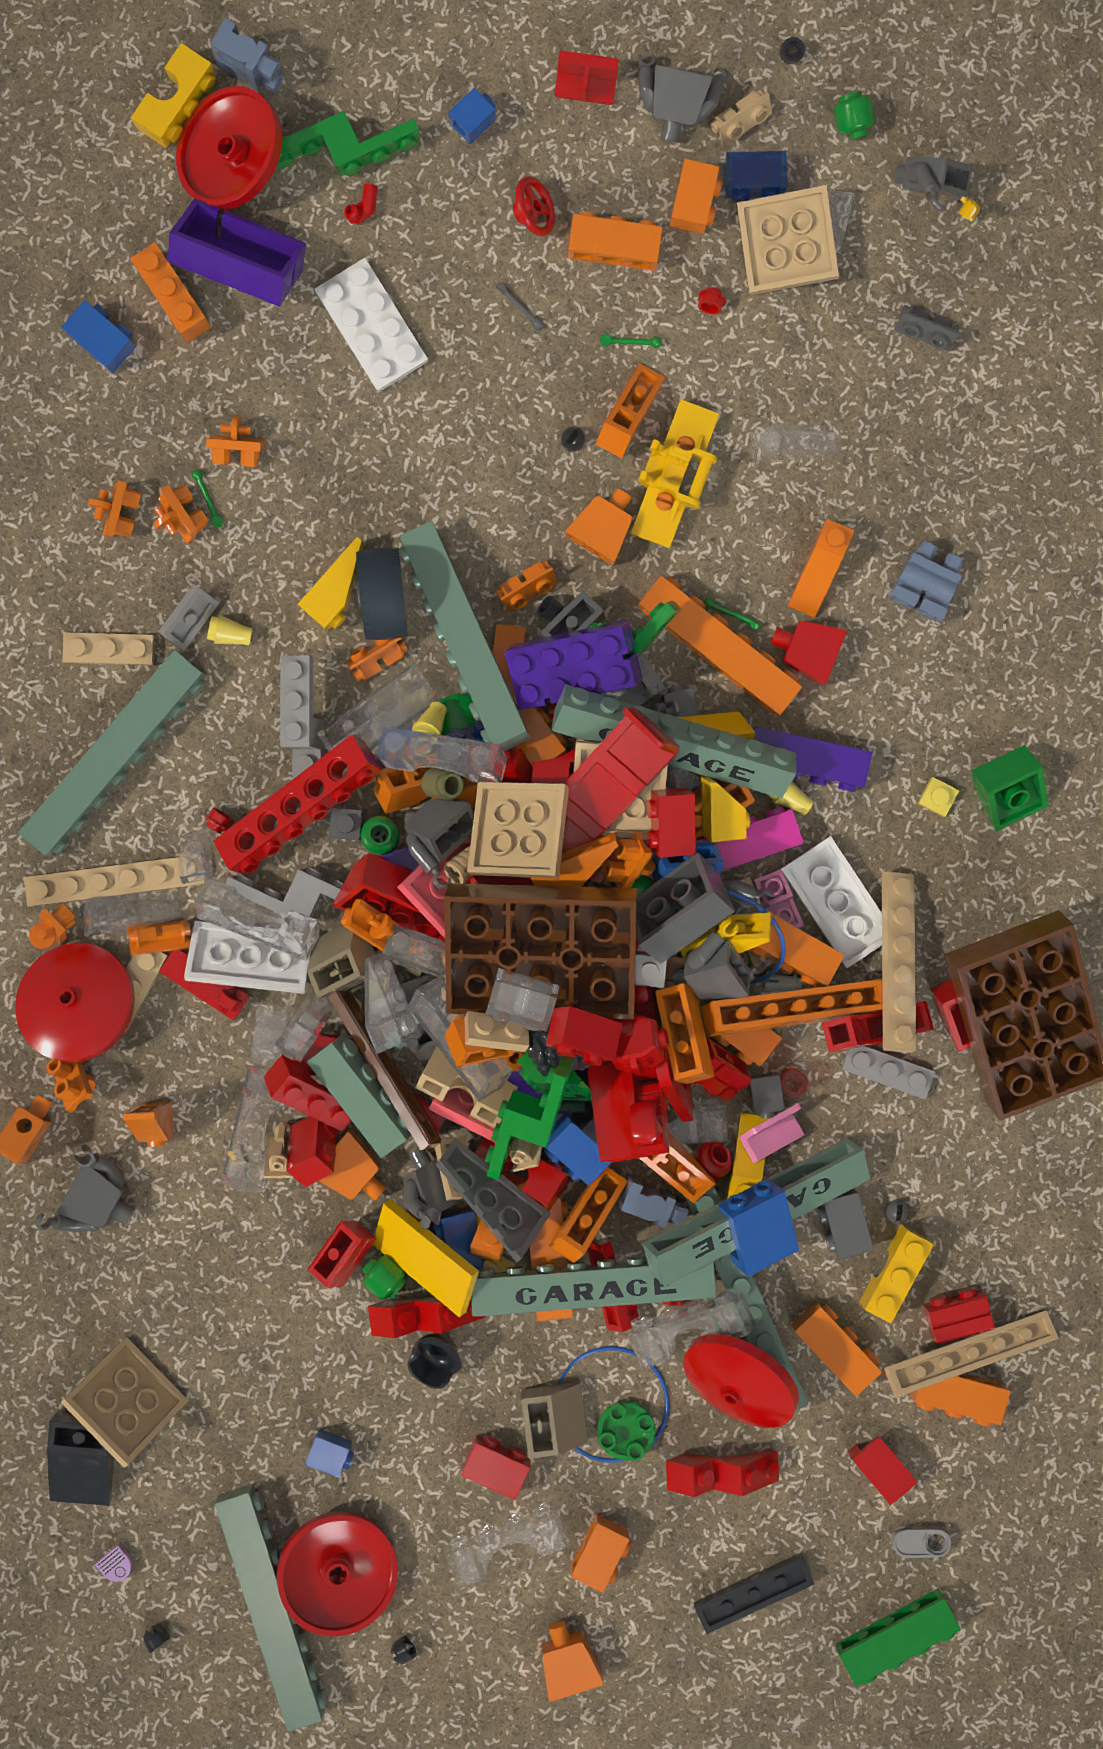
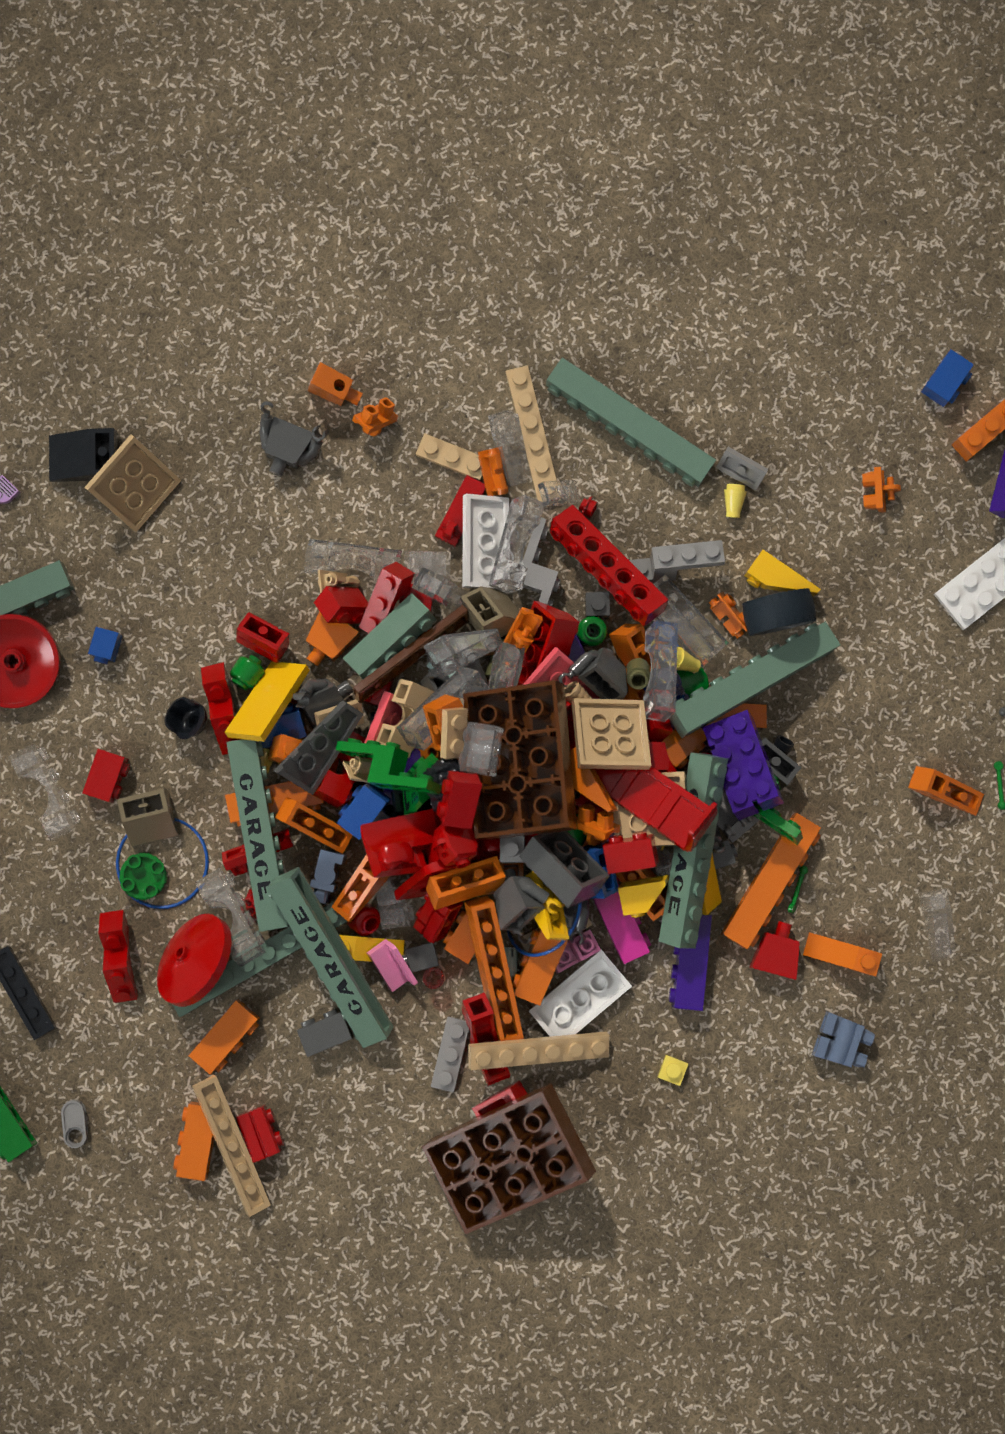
camera: 75 degrees right, 5 degrees down
(51, 927) = (493, 390): orange hips -> none
(98, 1007) = (436, 413): red dish -> none
(108, 649) = (710, 411): tan plate -> none
(120, 497) = (827, 408): orange hips -> none
(151, 1122) = (349, 481): orange slope -> none
(175, 518) = (817, 449): orange hips -> none
(216, 520) = (850, 464): green hinge -> none
(539, 580) = (791, 717): orange hinge -> none
(577, 444) = (916, 753): black hinge -> none
(600, 1553) = (43, 865): orange brick -> none
(602, 526) = (852, 778): orange torso -> none
(665, 471) = (904, 823): yellow piece -> none
(760, 1226) = (319, 960): blue panel -> none
(794, 799) = (658, 953): light yellow cone -> none
(883, 1469) = (131, 1085): red panel -> none
(891, 1212) = (337, 1069): dark grey hinge -> none
(905, 1259) = (289, 1079): yellow arch -> none
(1011, 787) = (687, 1127): green slope -> none

